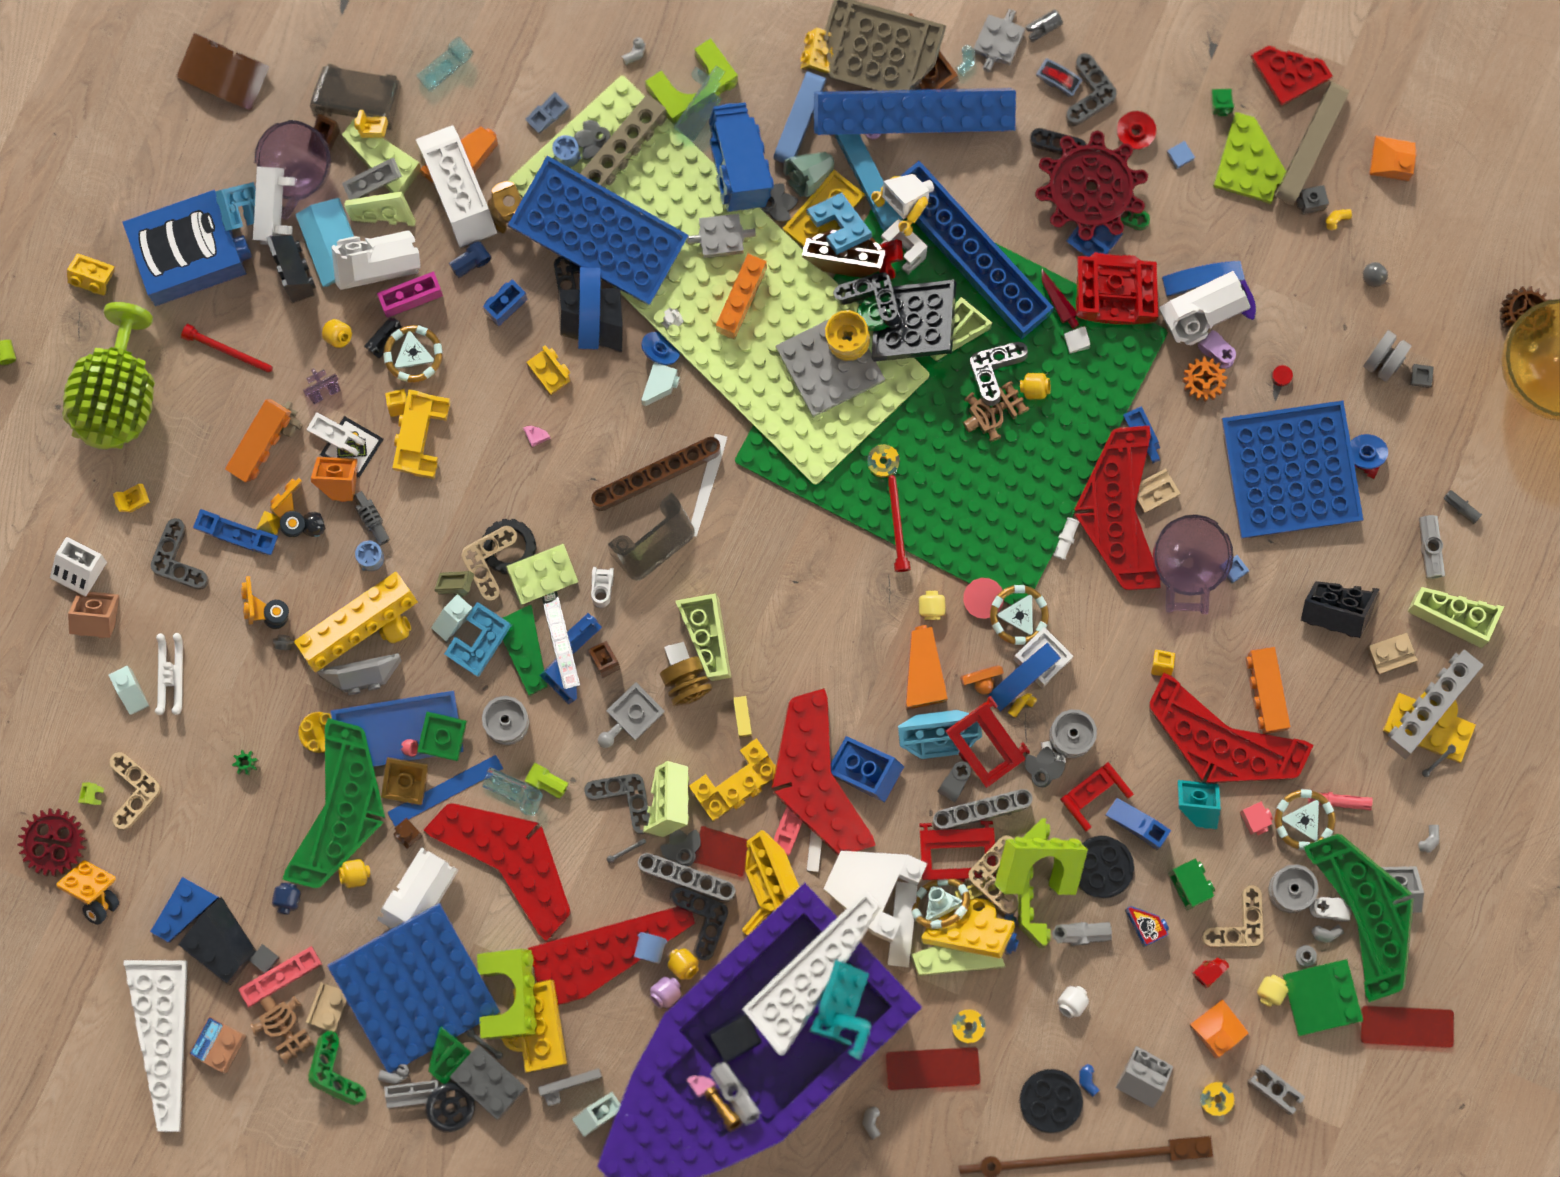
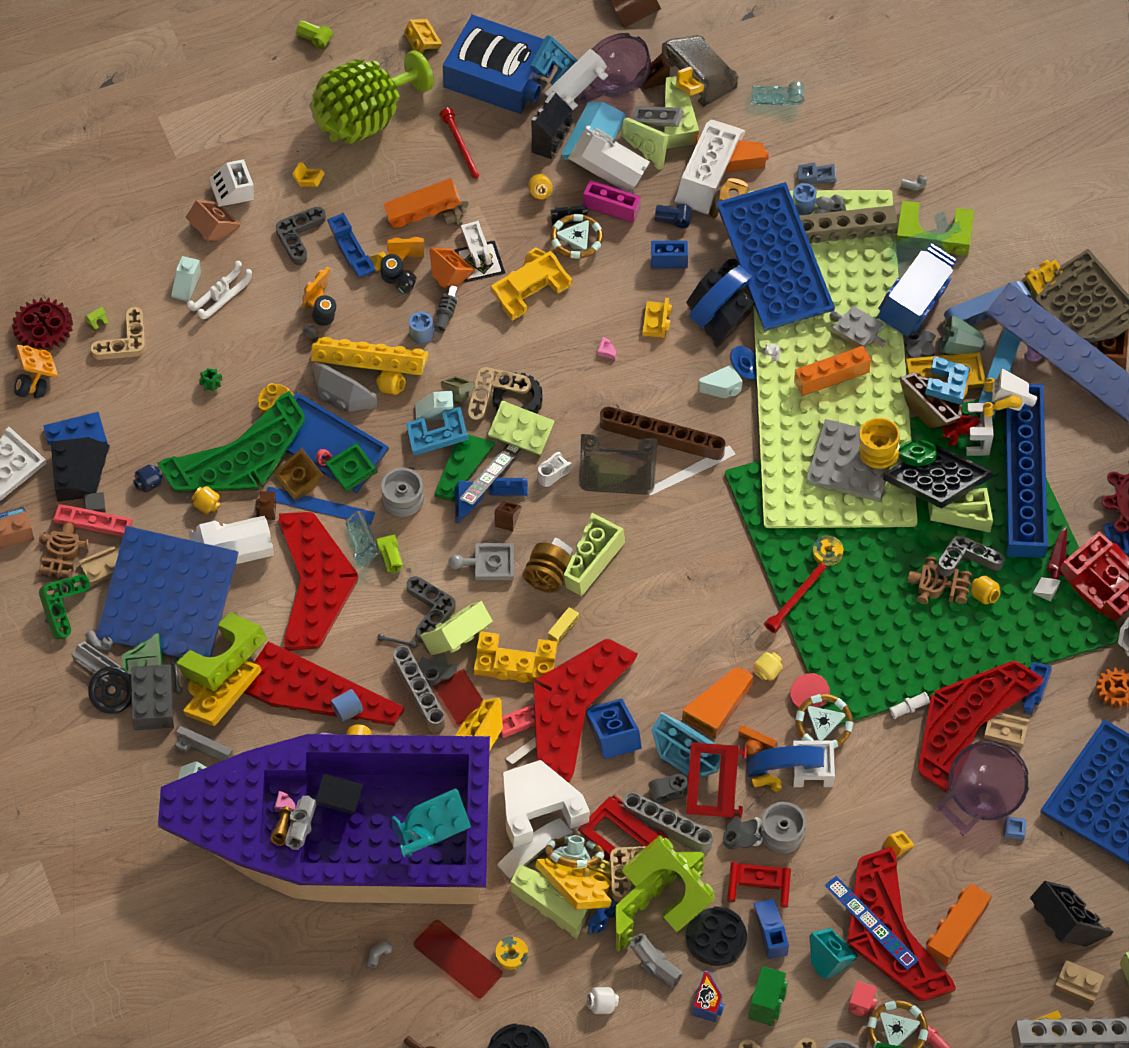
camera: 45 degrees right, 20 degrees down
(313, 390) = (498, 206): hips -> none
(707, 912) = (409, 722): black beam -> none
(794, 994) = (399, 795): white wing -> none
(874, 289) = (932, 436): black beam -> none
(1206, 750) = (871, 922): none -> blue sticker

